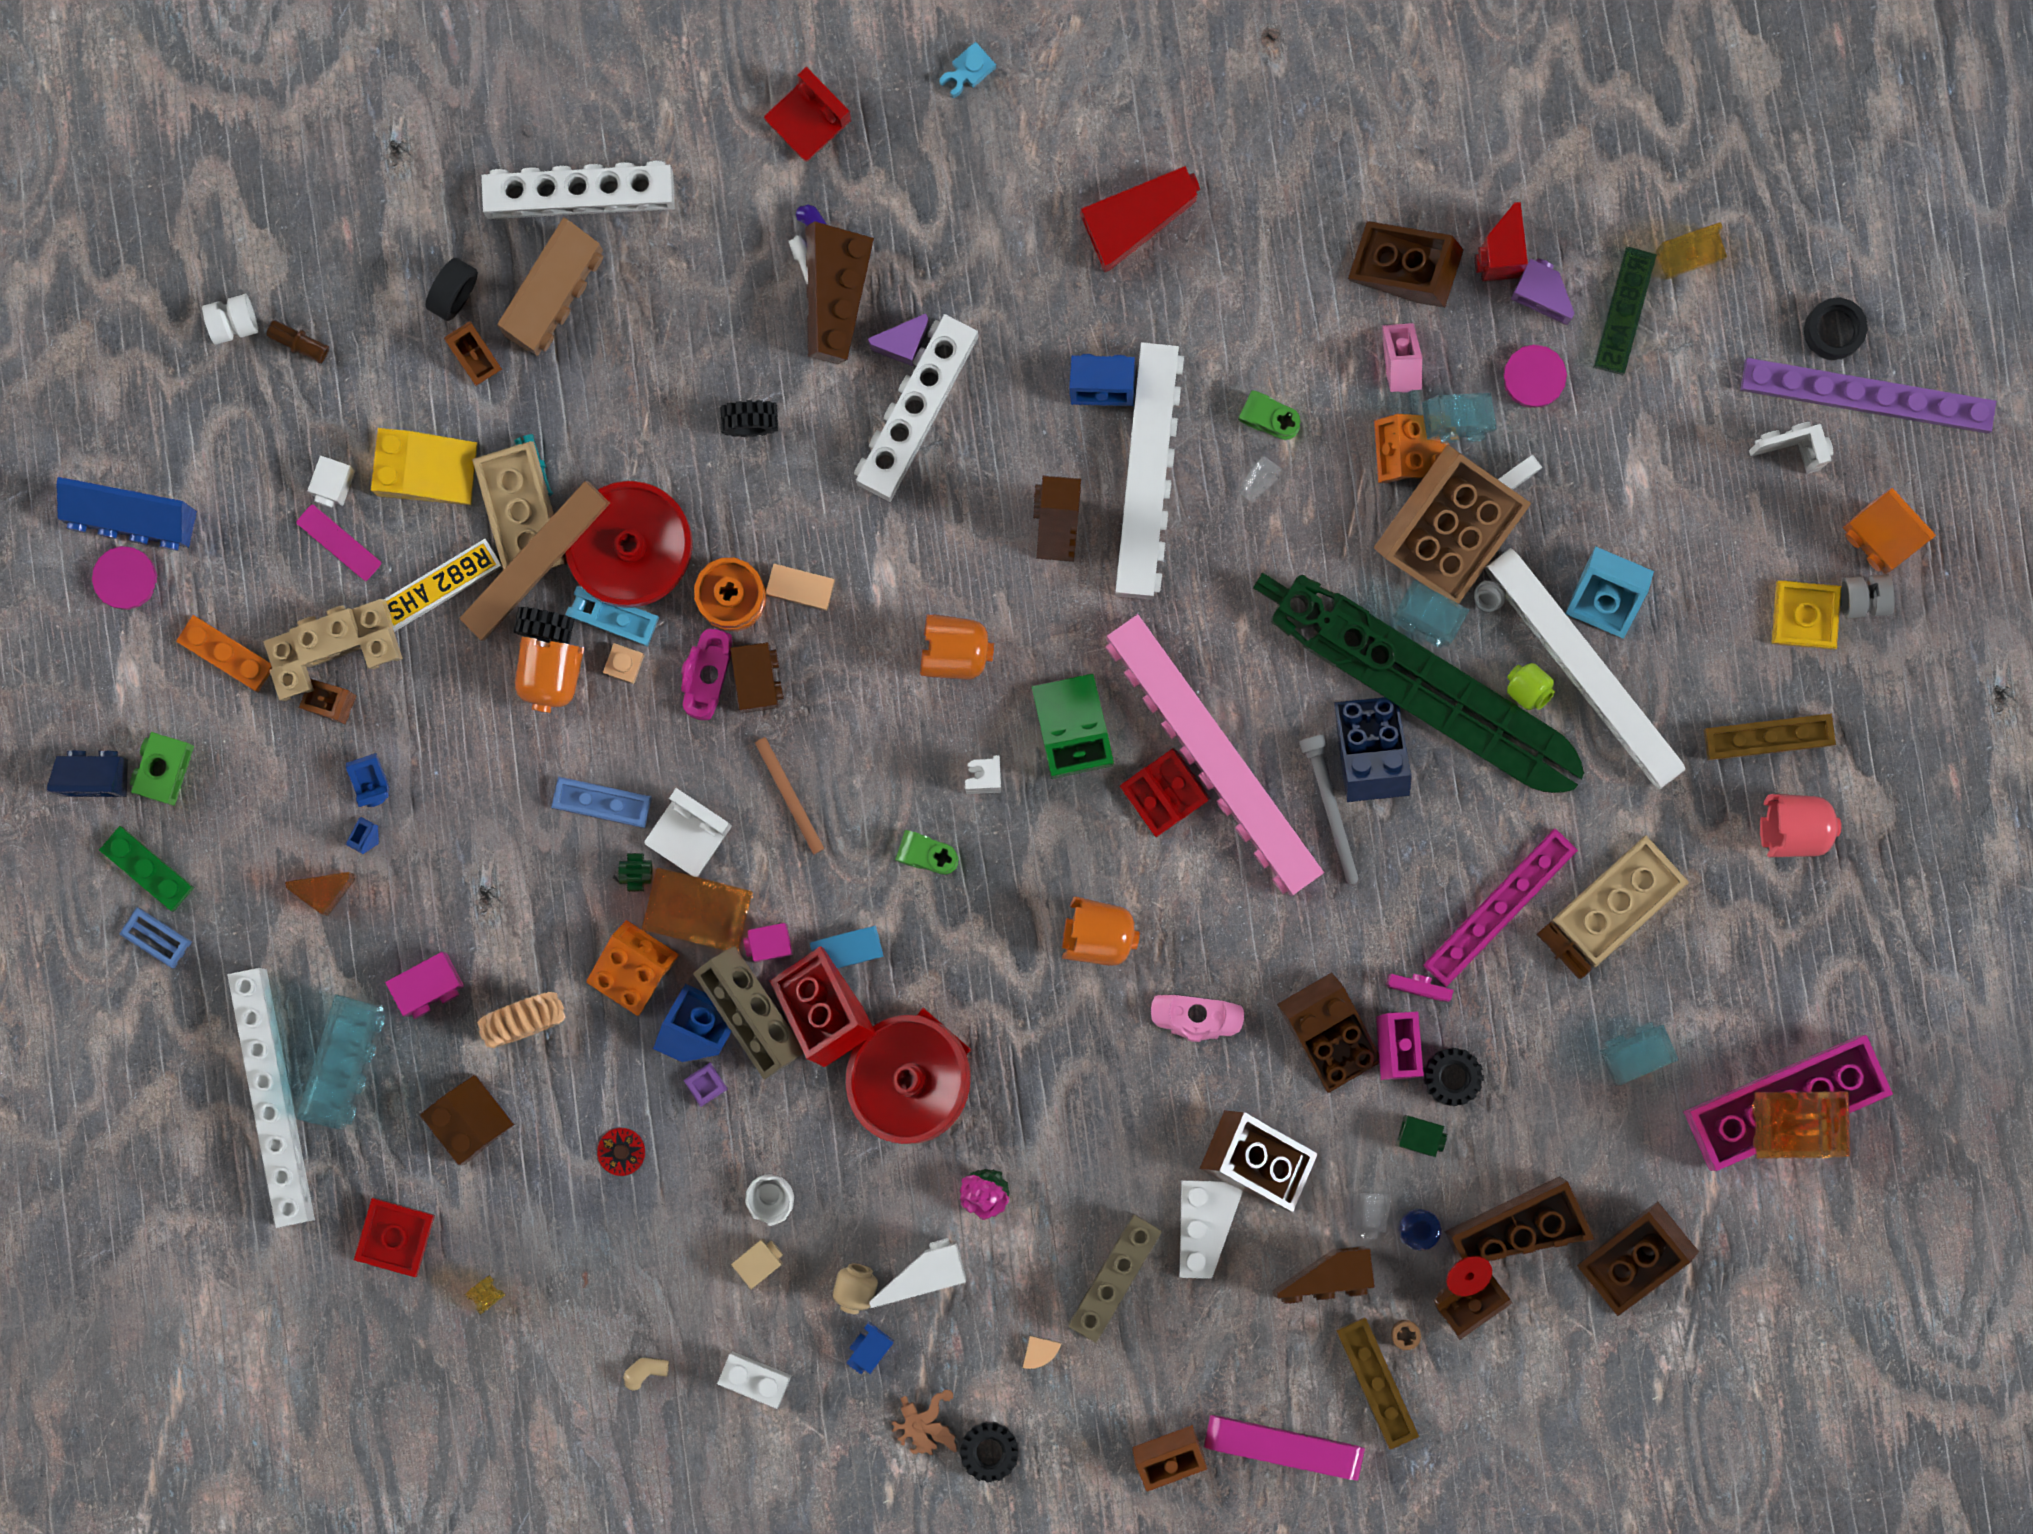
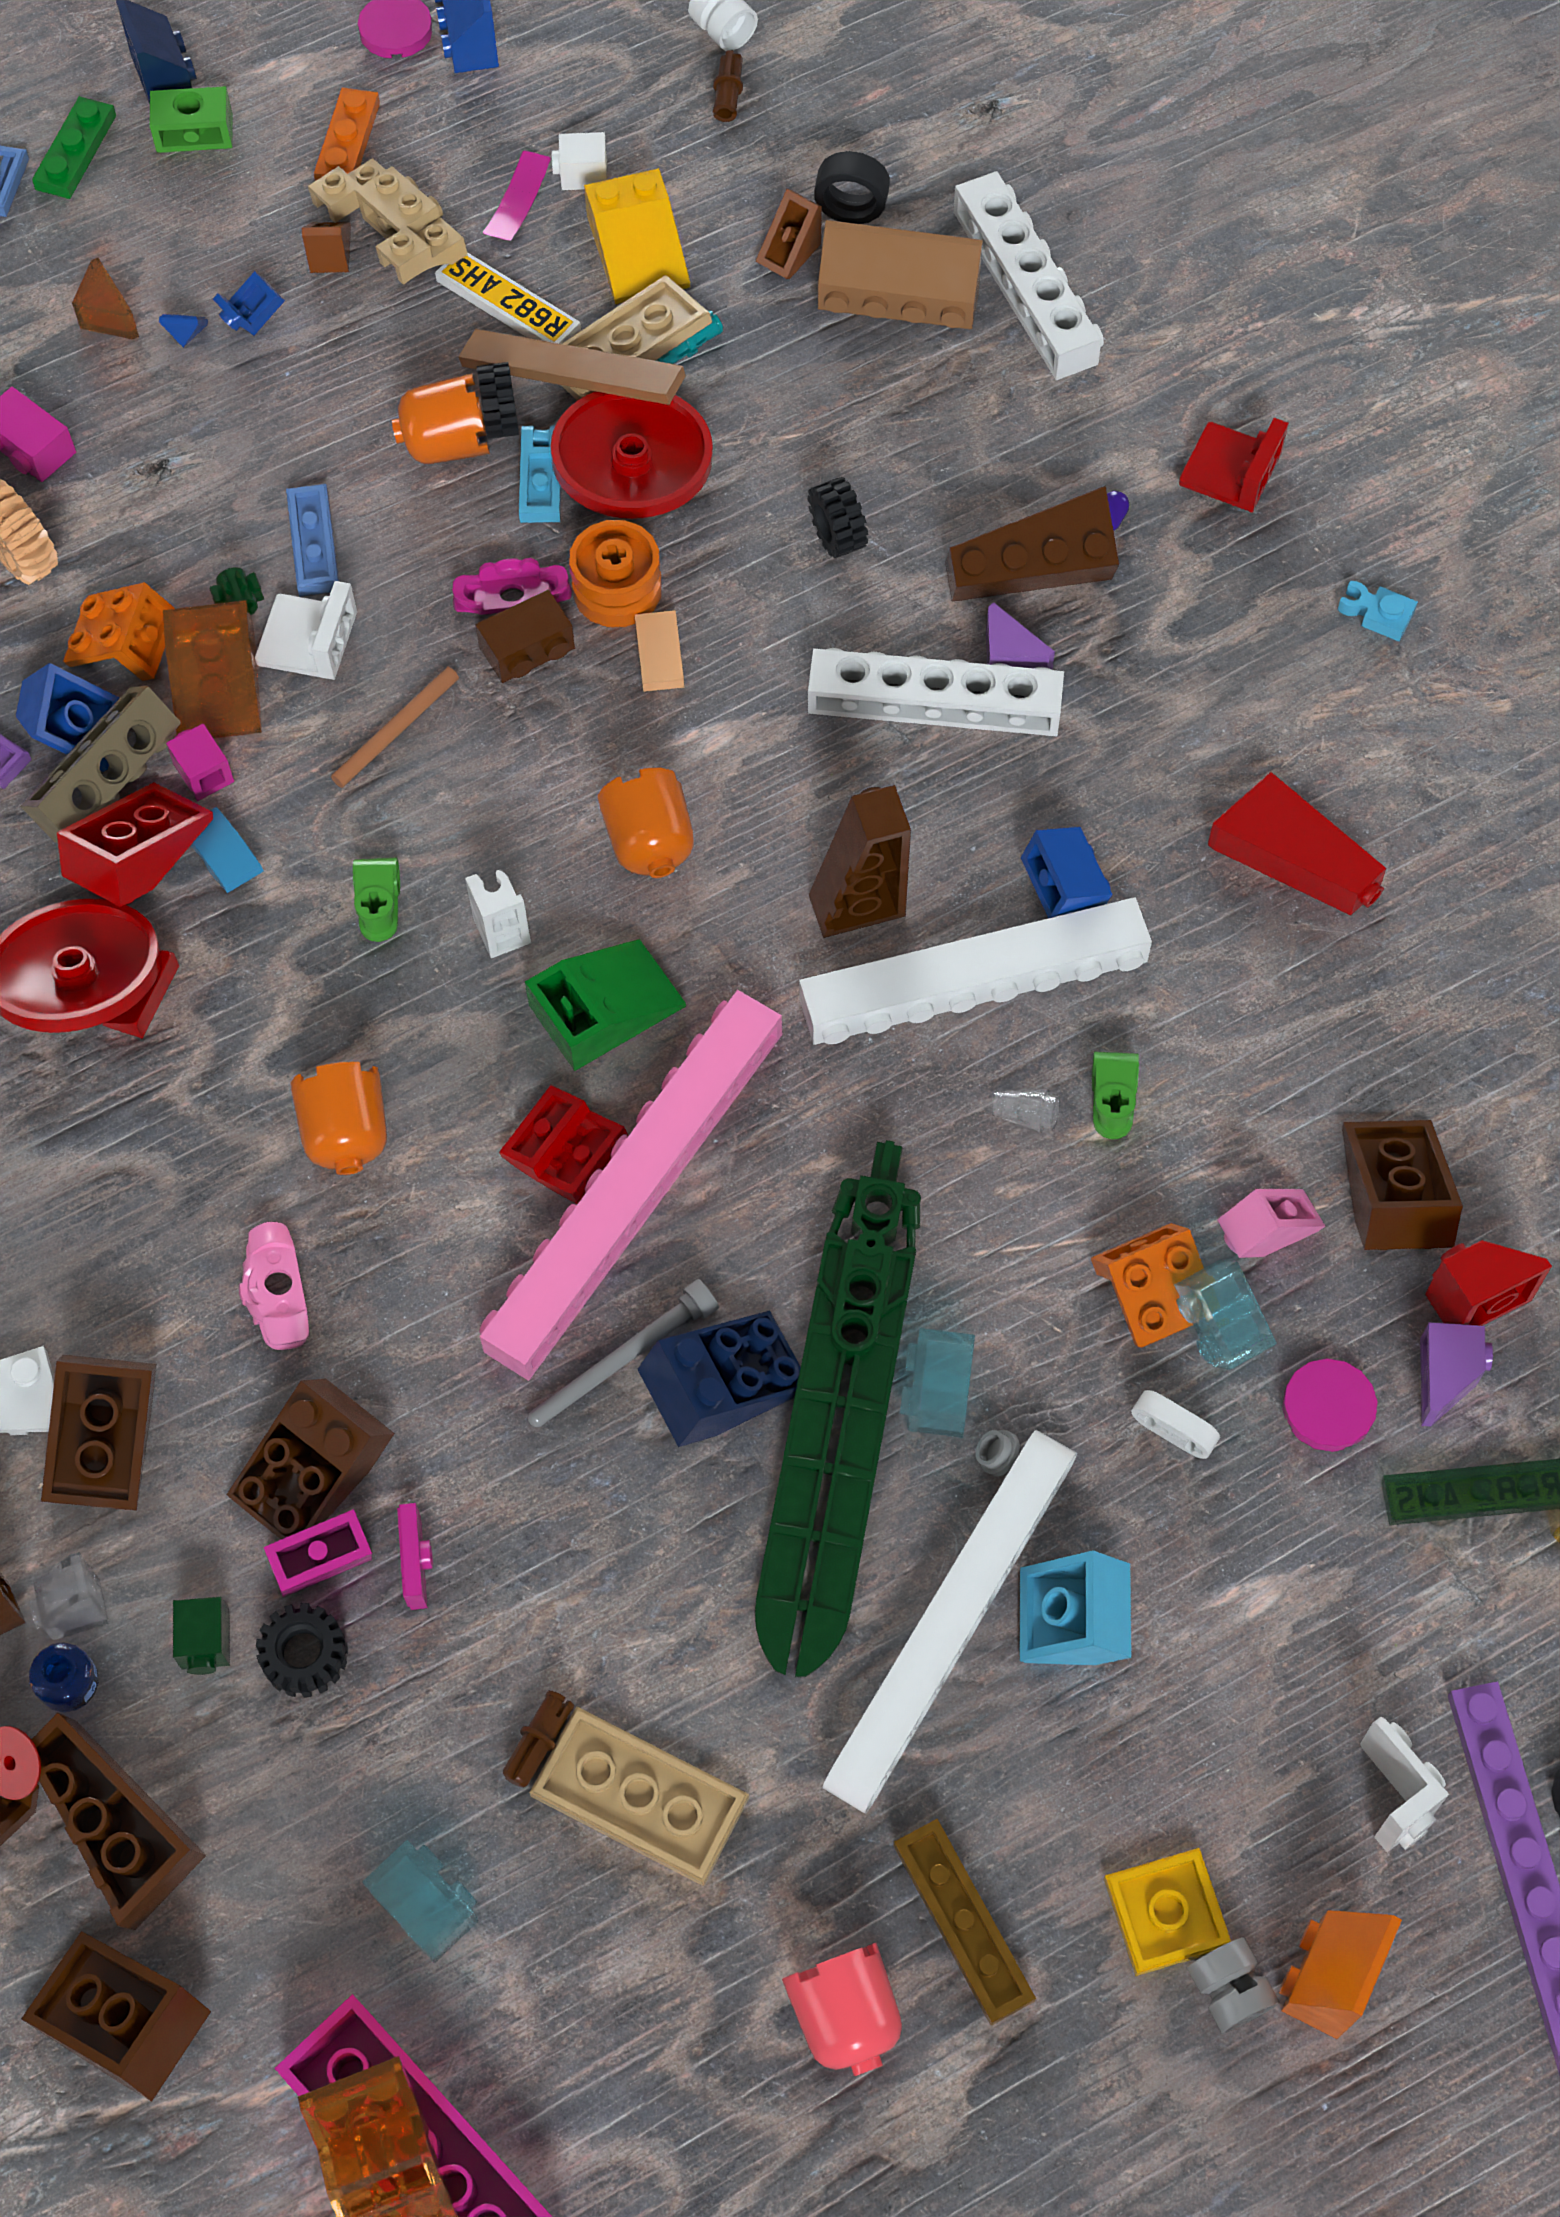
camera: 70 degrees right, 20 degrees down
(623, 663) = (489, 505): light nougat plate -> none
(1452, 525) = (1071, 1361): medium nougat slope -> none
(1500, 907) = (569, 1630): dark pink tile -> none
(1530, 686) = (895, 1551): lime head -> none

